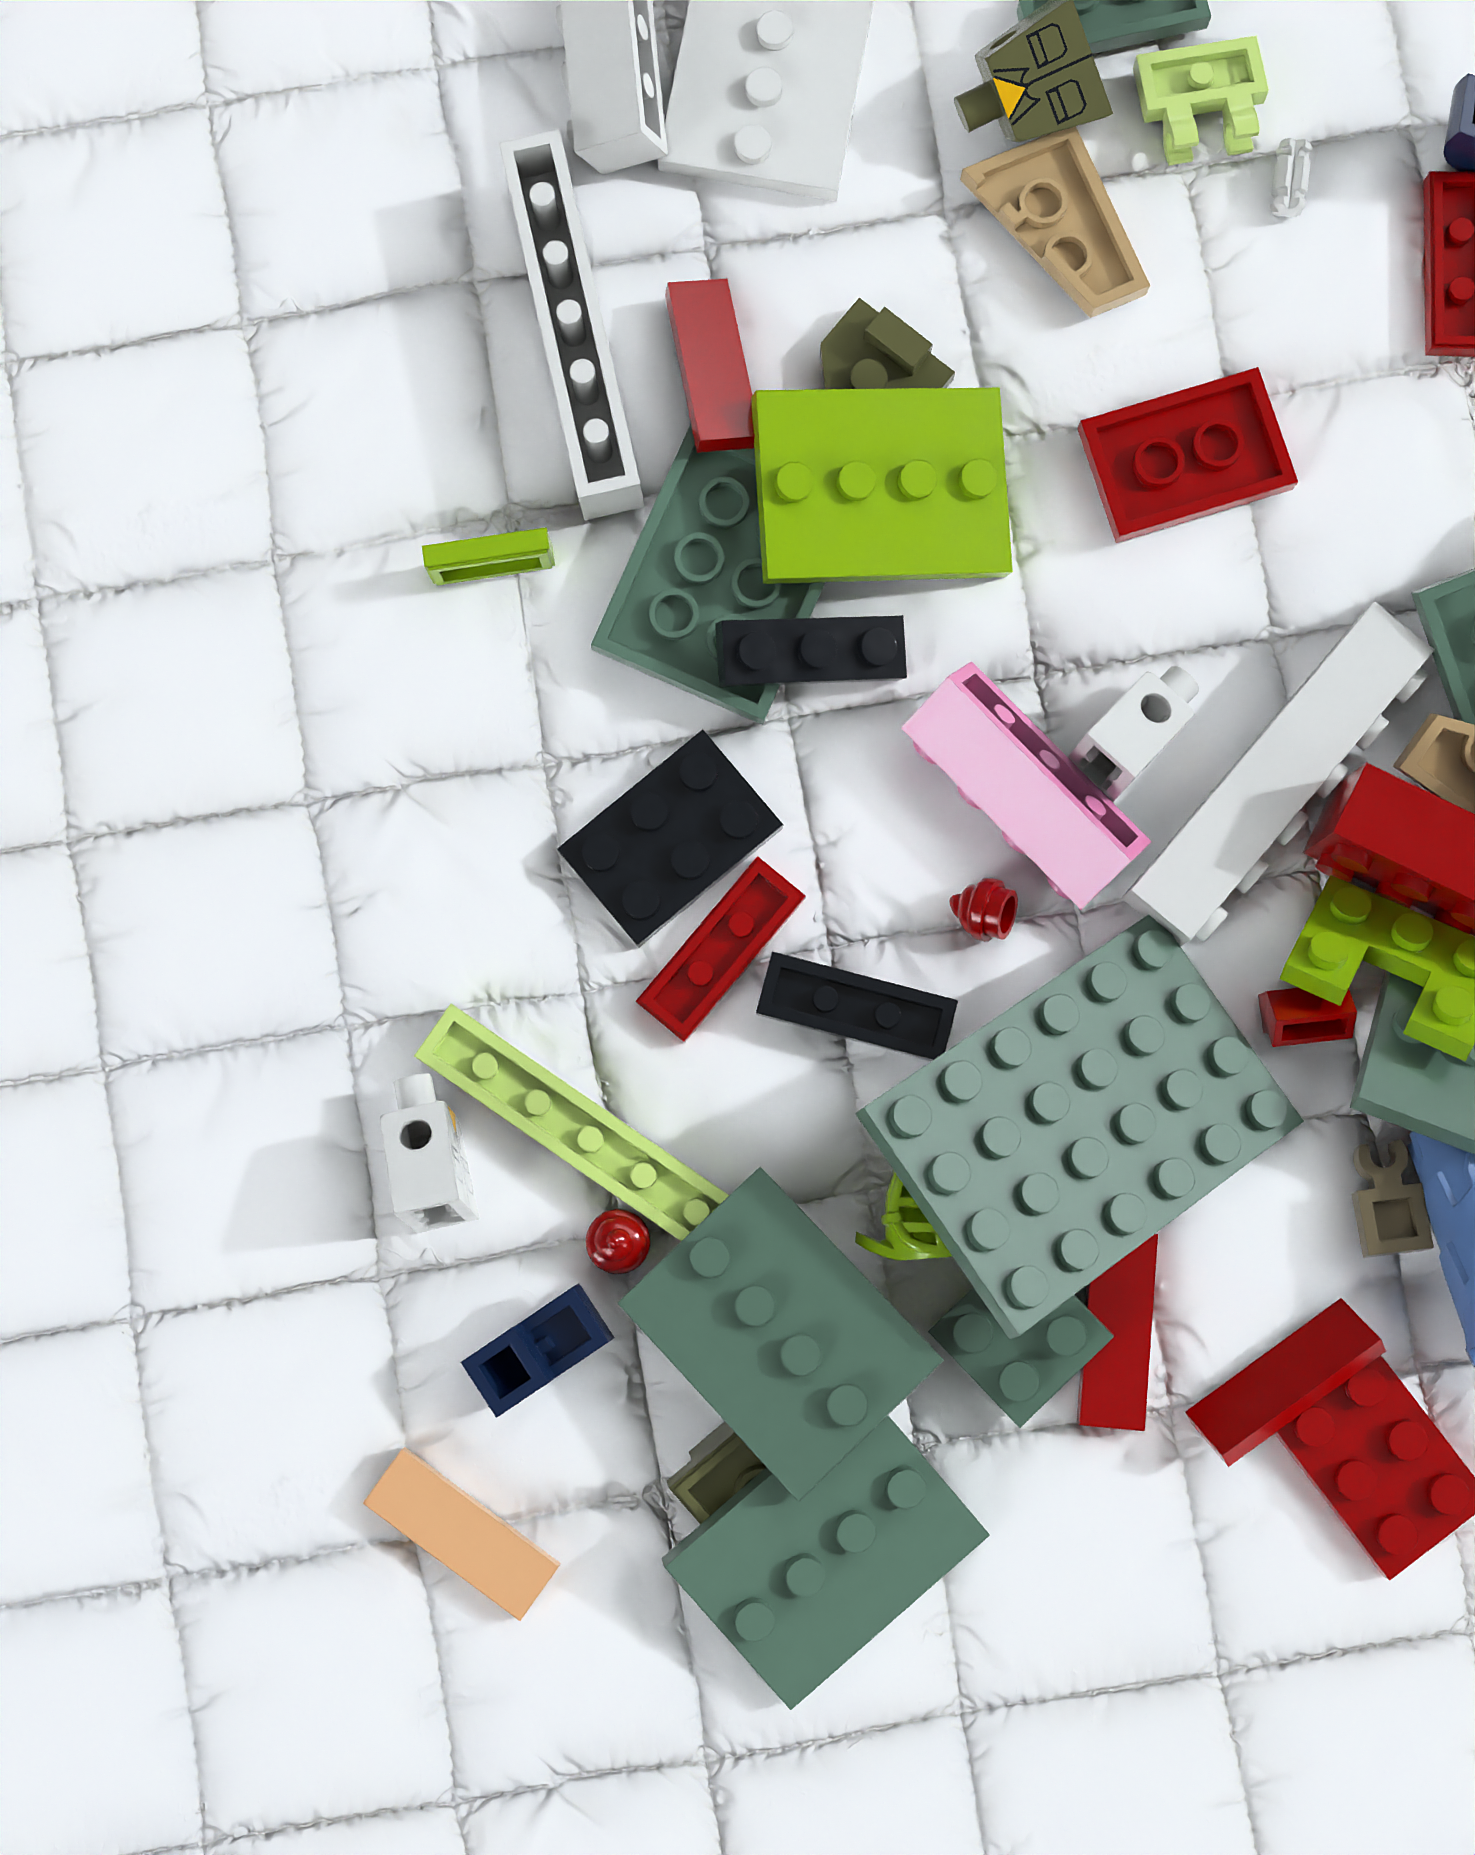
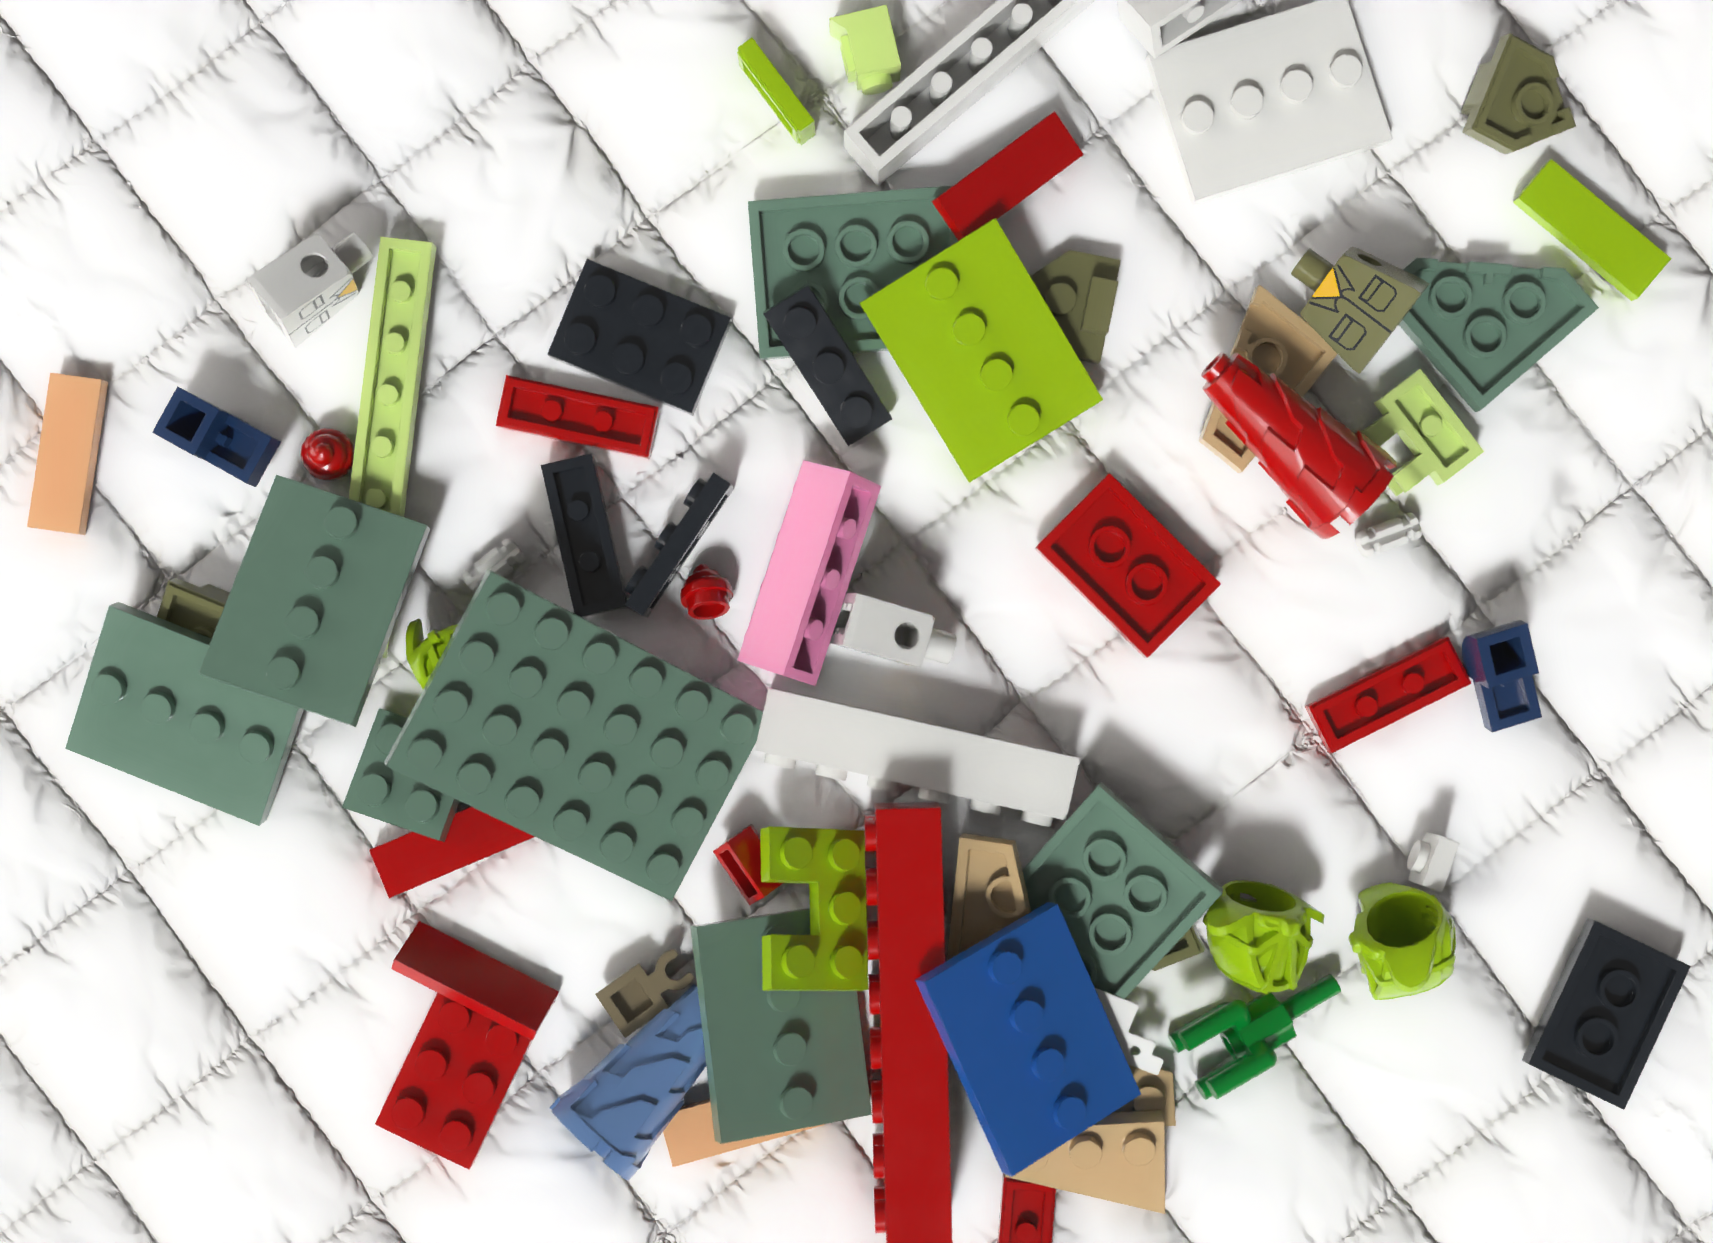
camera: 55 degrees right, 5 degrees up
(497, 437) = (868, 49): none -> yellowish green window
(836, 1124) = (496, 560): none -> white piece
(918, 910) = (677, 544): none -> black plate
(1165, 207) = (1301, 447): none -> red cone

